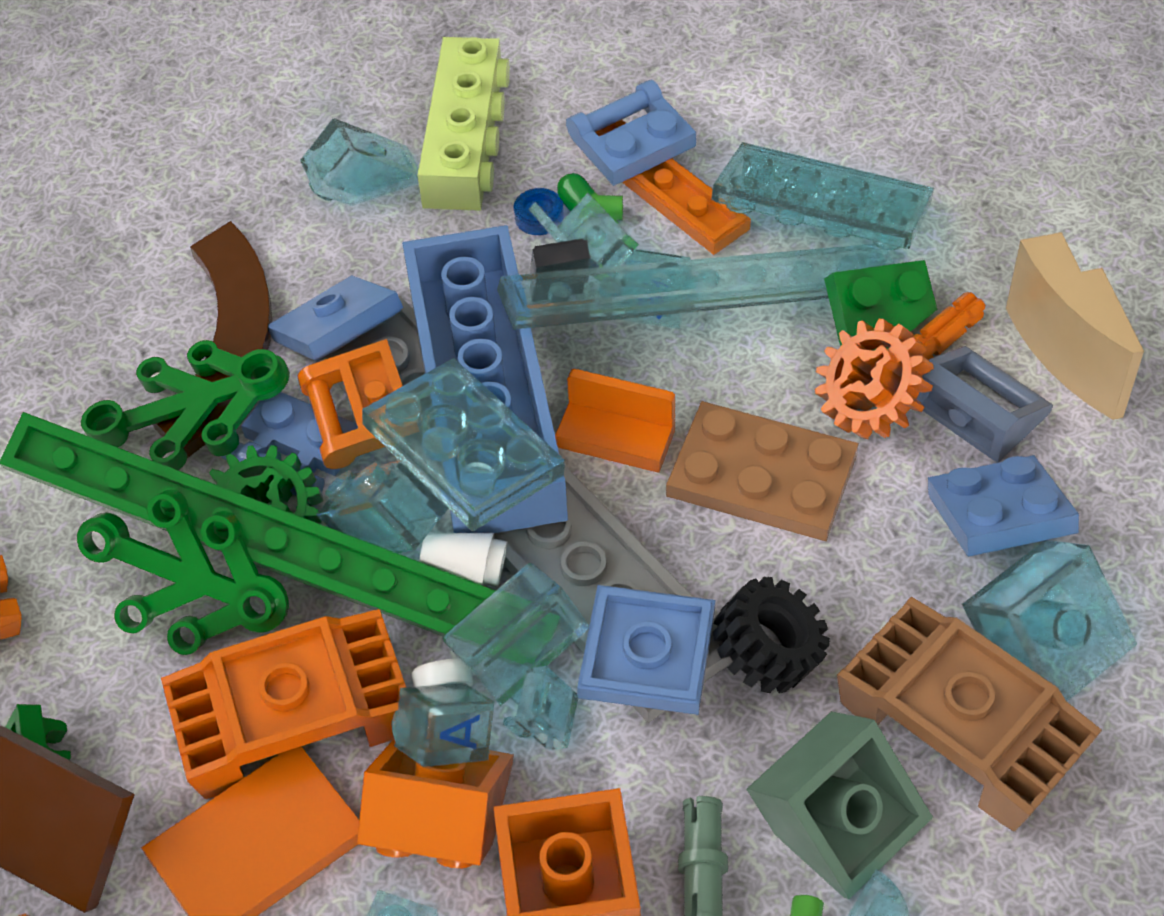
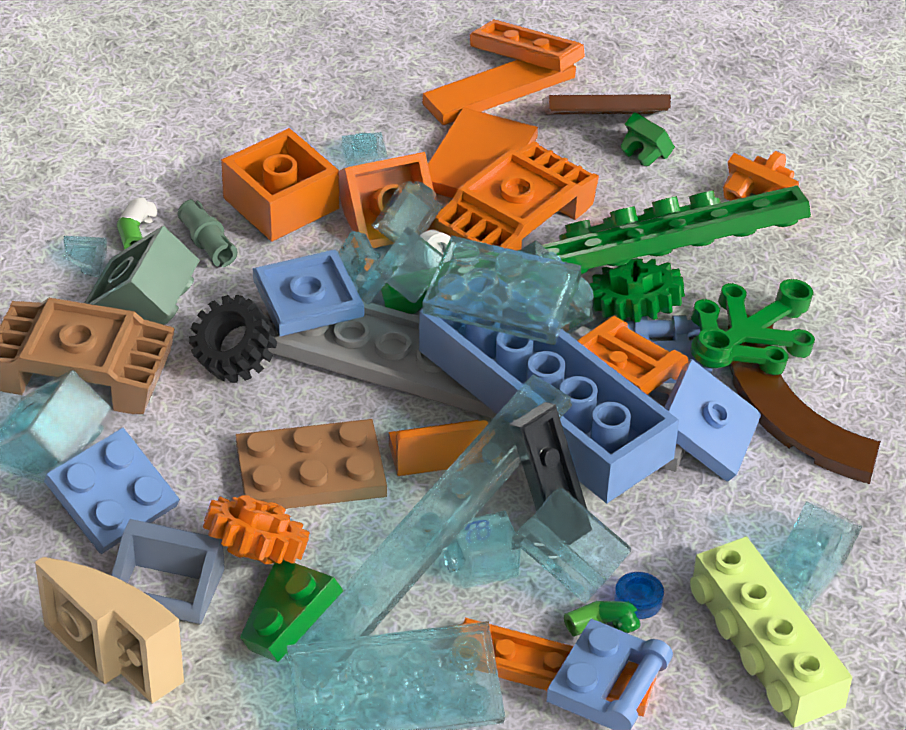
camera: 145 degrees right, 10 degrees down
(951, 324) = (225, 626): orange axle -> none

